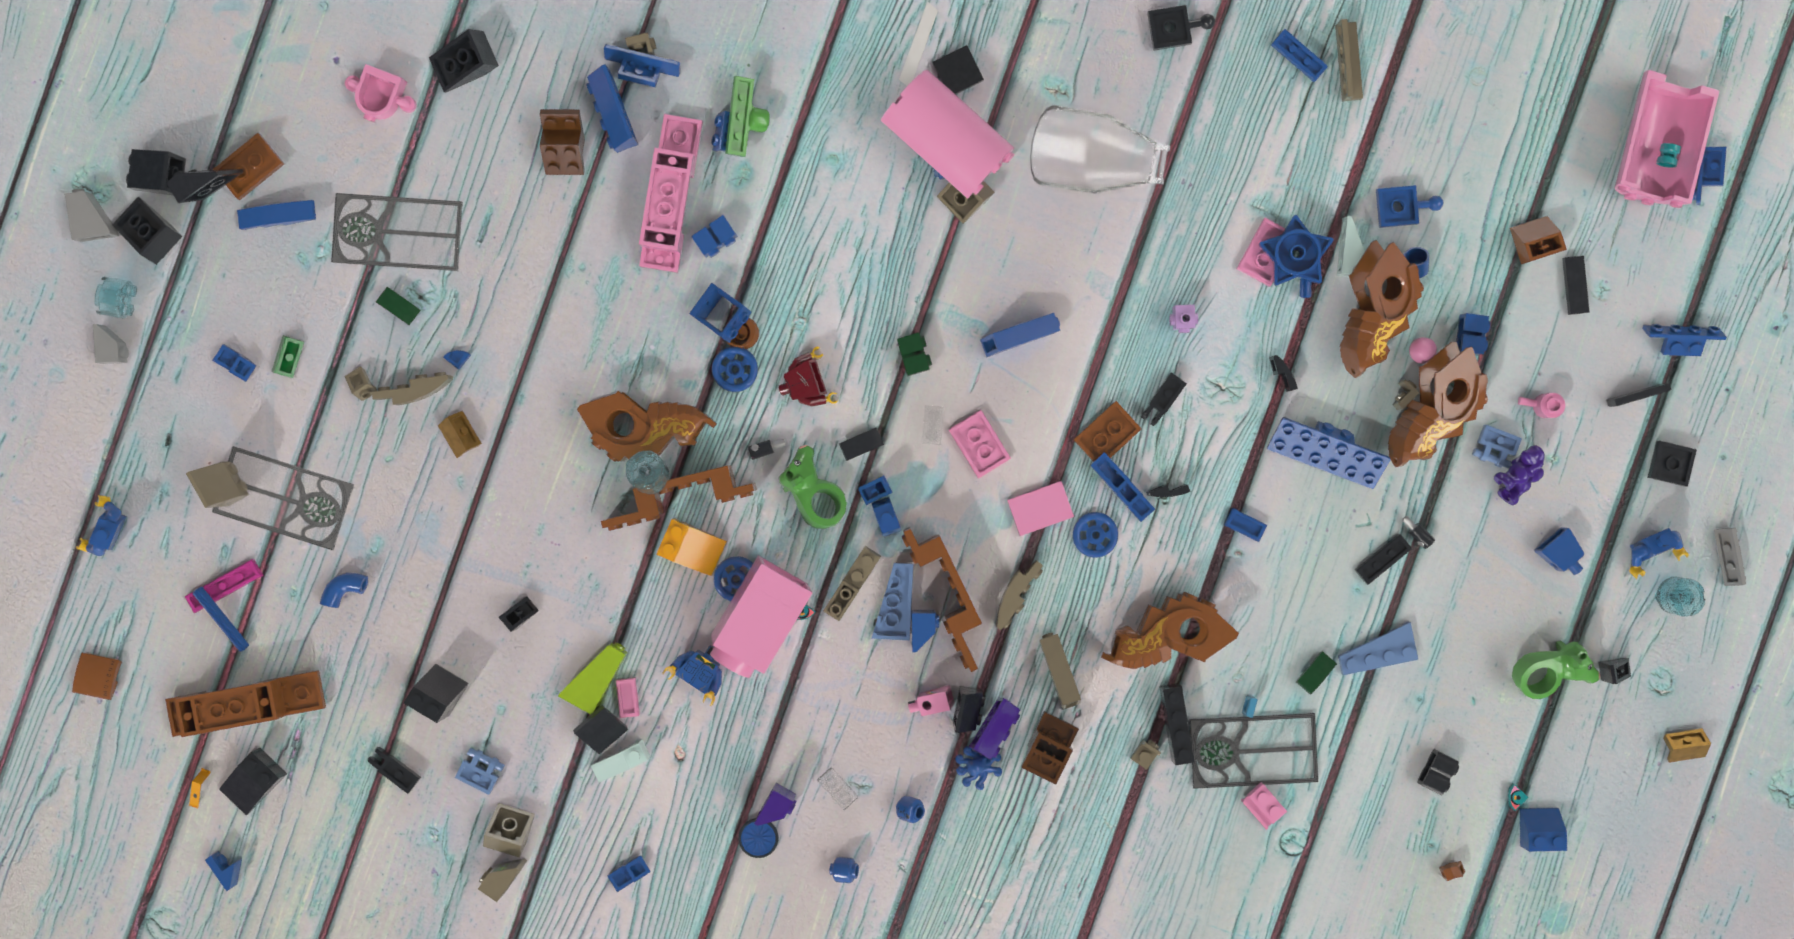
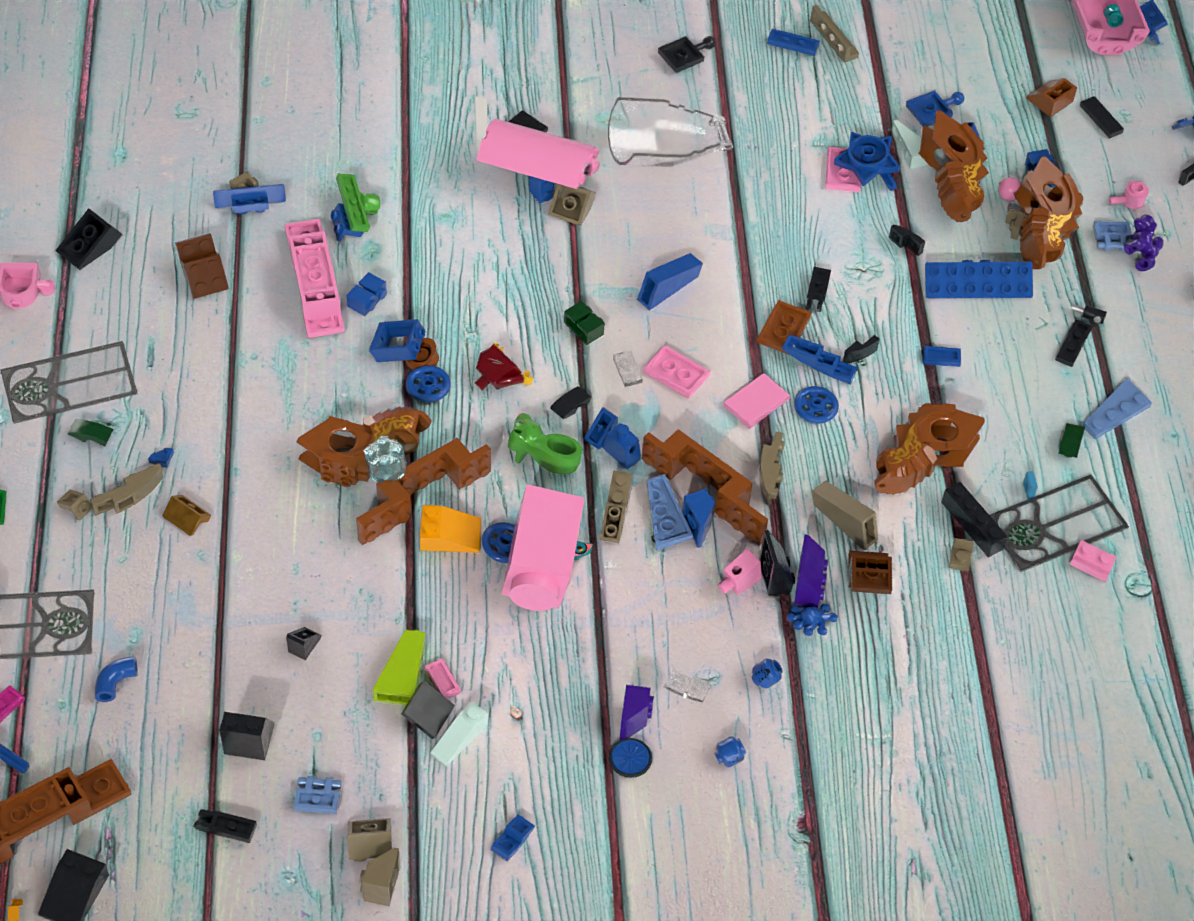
camera: 30 degrees left, 35 degrees down
(612, 109) = (237, 231): blue slope -> none
(699, 671) = (503, 627): blue torso -> none
(764, 448) = (483, 433): black piece -> none
(1188, 313) = (801, 226): lavender brick -> none

